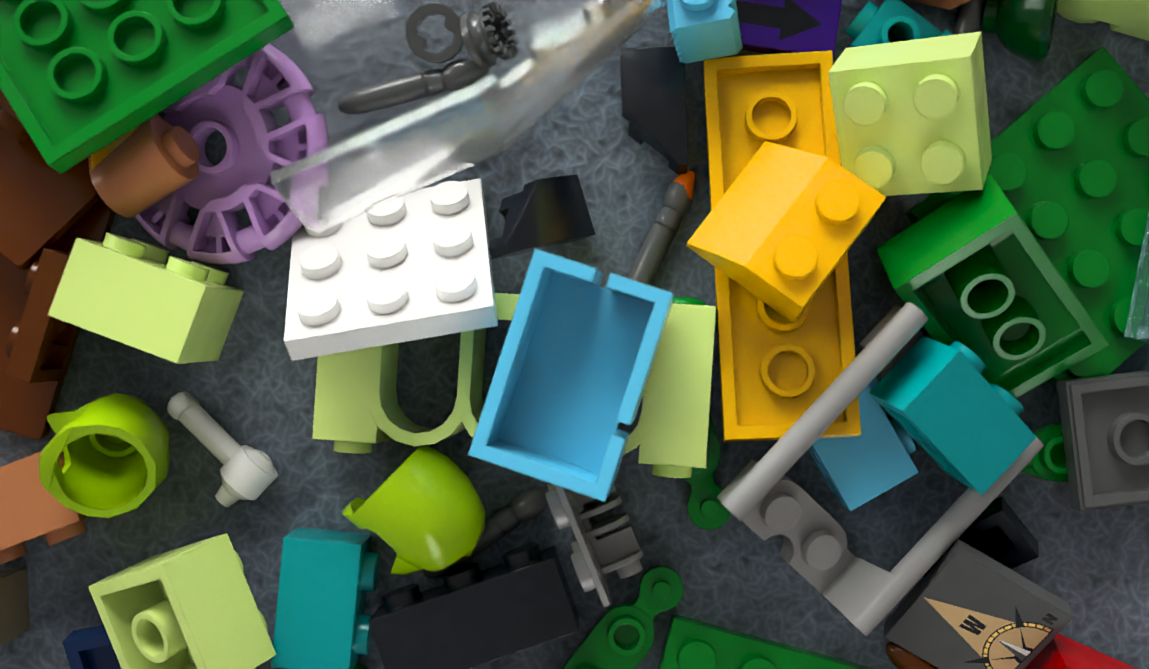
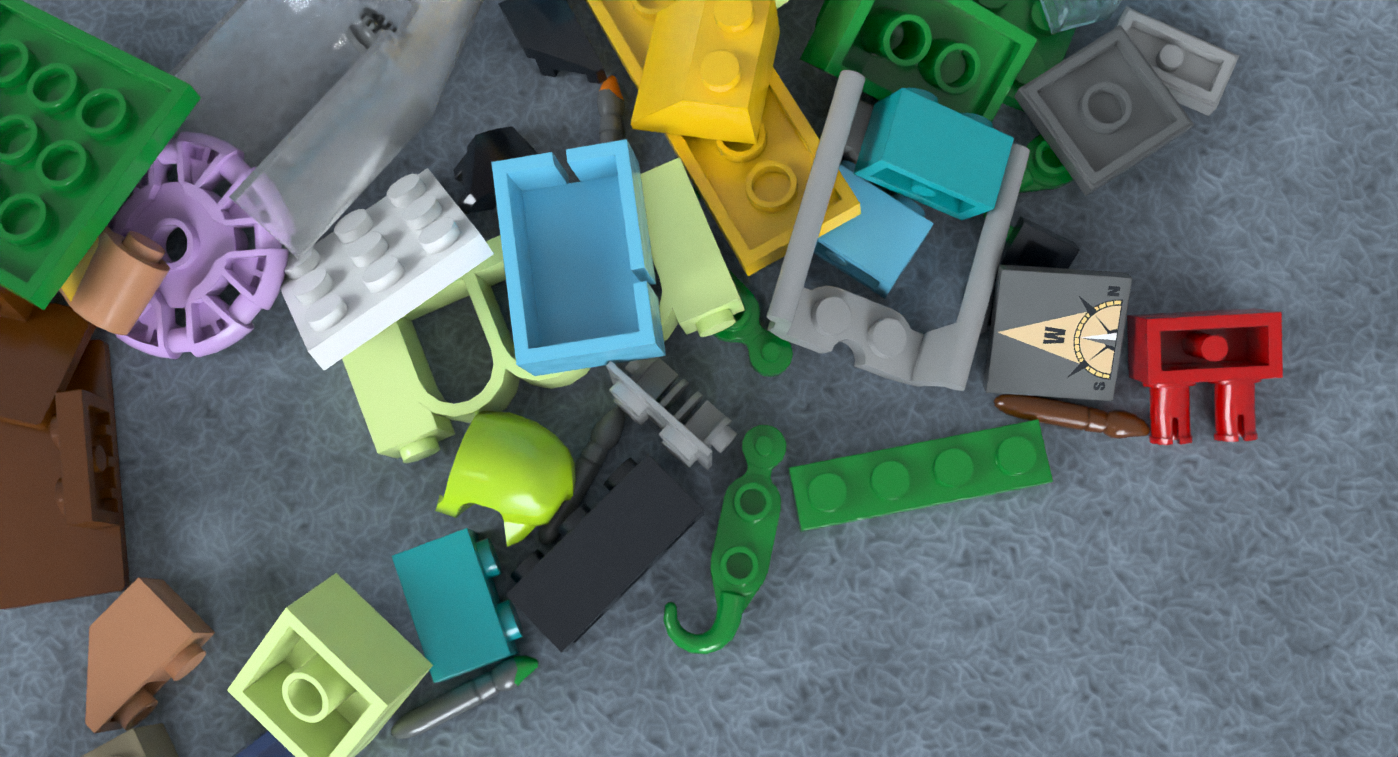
camera: 25 degrees left, 10 degrees down
(112, 456) = (192, 559): lime piece -> none
(144, 302) = (170, 398): yellowish green brick -> none
(244, 469) = (329, 524): white piece -> none
(418, 43) = (314, 43): dark grey bush -> none

